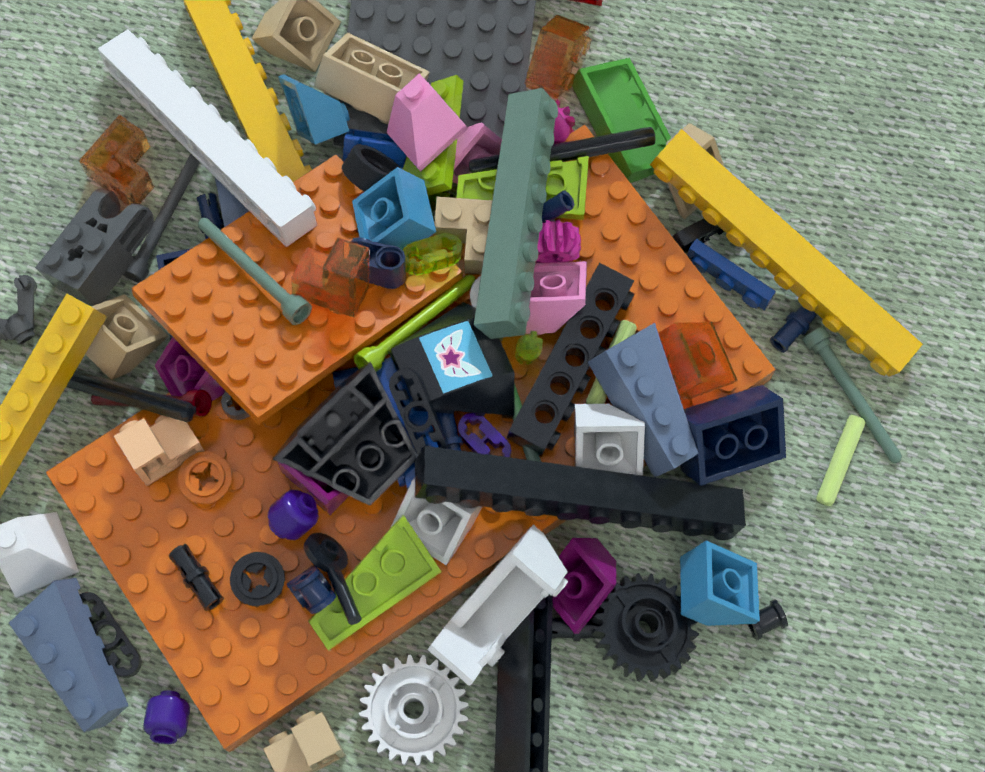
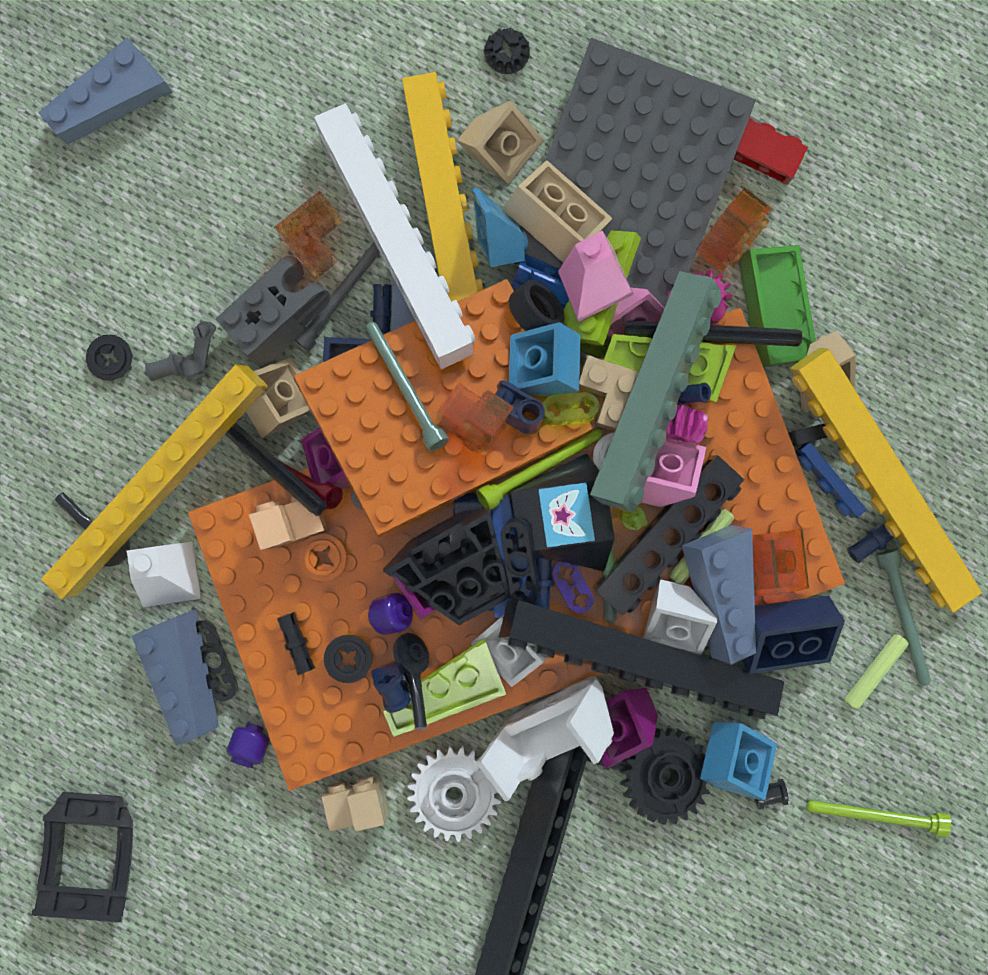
camera: 20 degrees right, 15 degrees up
(958, 605) = (938, 824): none -> lime piece

